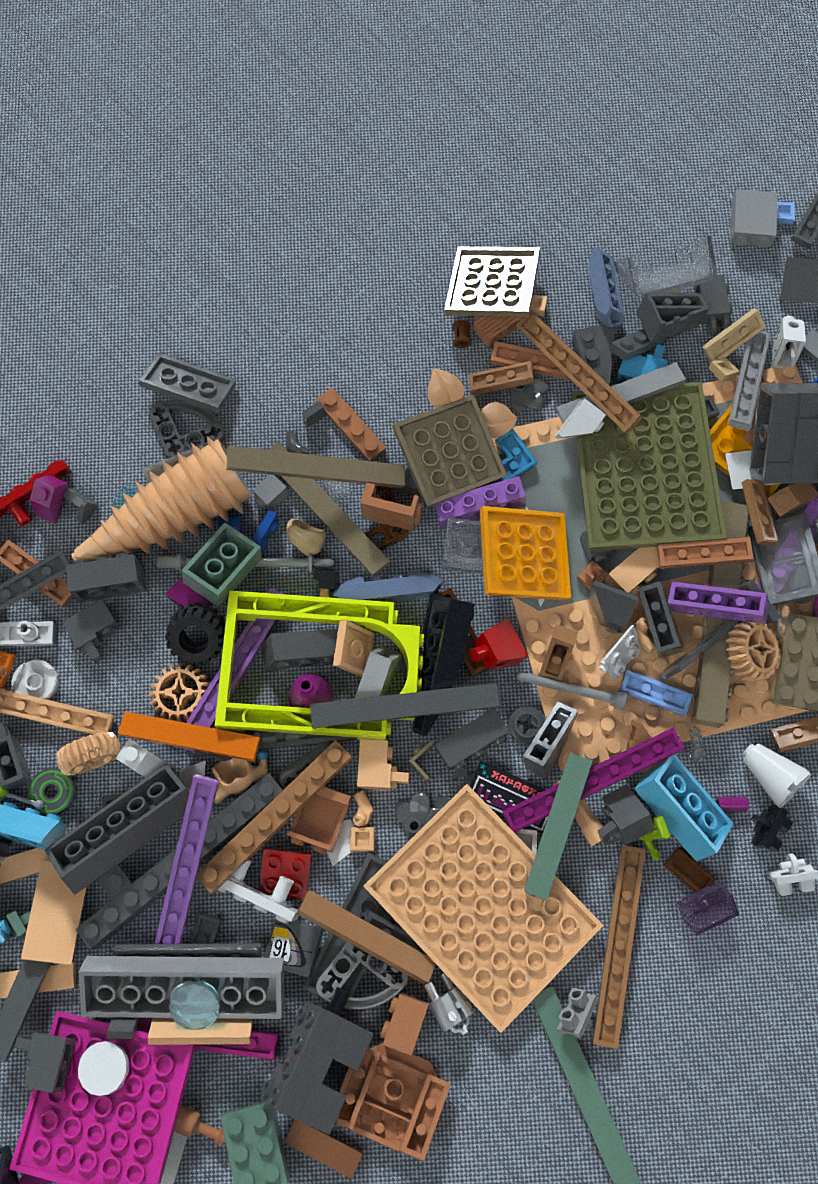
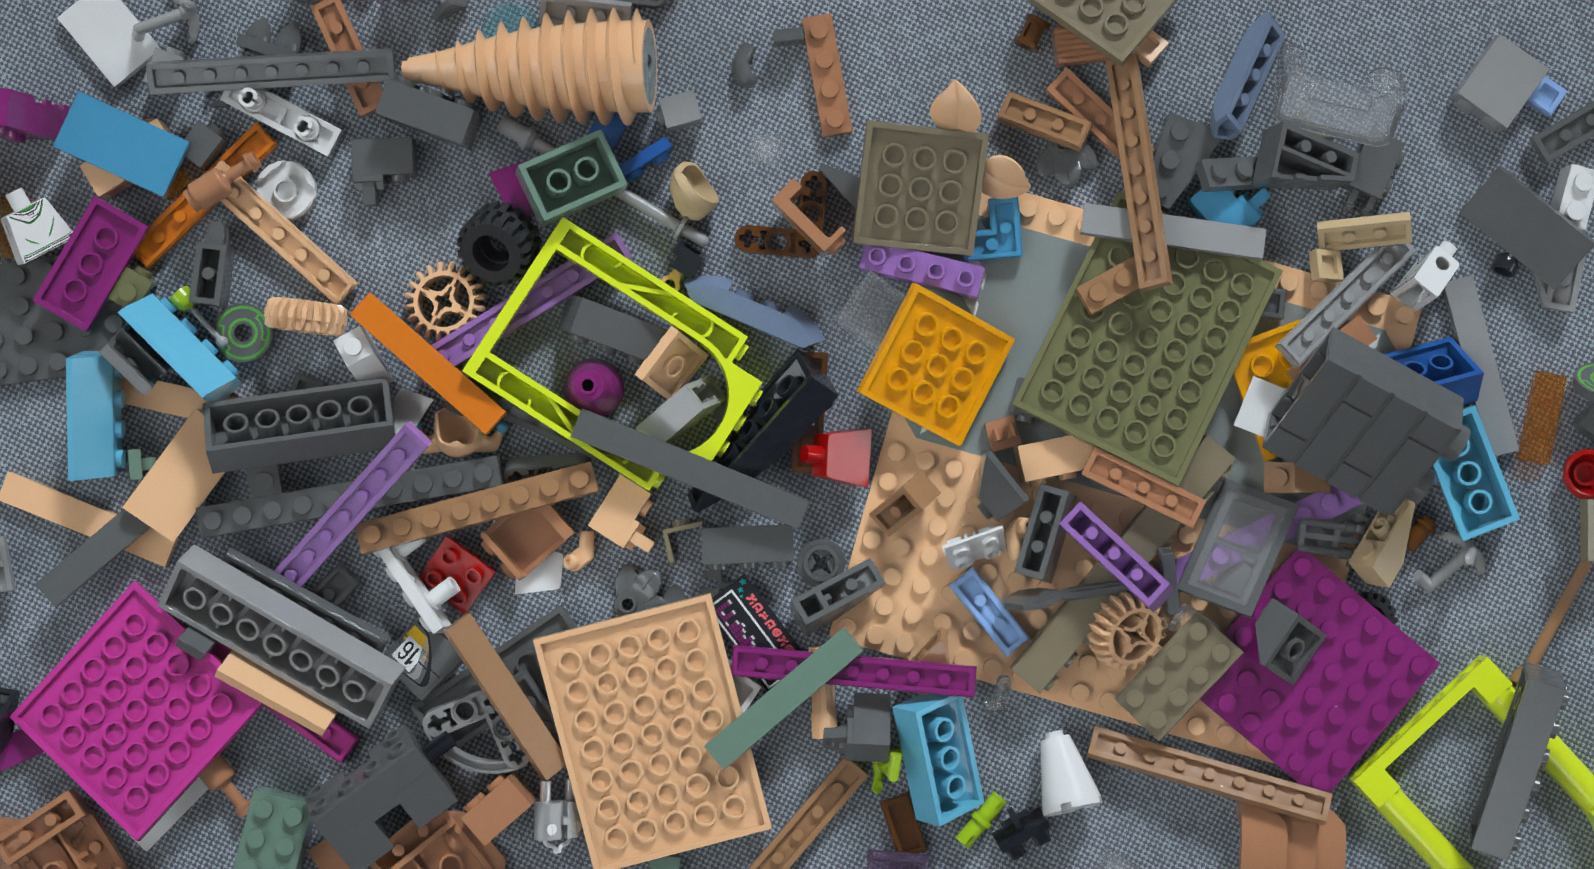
camera: 30 degrees right, 15 degrees up
(49, 1060) = (103, 629): dark grey hinge -> none
(103, 1068) = (155, 672): white tile -> none
(194, 1005) = (283, 664): clear light blue tile -> none
(315, 467) = (744, 123): dark tan tile -> none
(337, 521) = (734, 169): dark tan tile -> none
(362, 839) = (562, 584): light nougat tile -> none
(582, 421) = (1098, 243): white slope -> none
(604, 444) = (1109, 287): none -> medium nougat plate
(615, 699) = (937, 593): light grey piece -> none
(732, 803) = (997, 781): magenta piece -> none
(738, 836) = (981, 820): none -> lime pin
(759, 512) = (1242, 475): medium nougat tile -> none

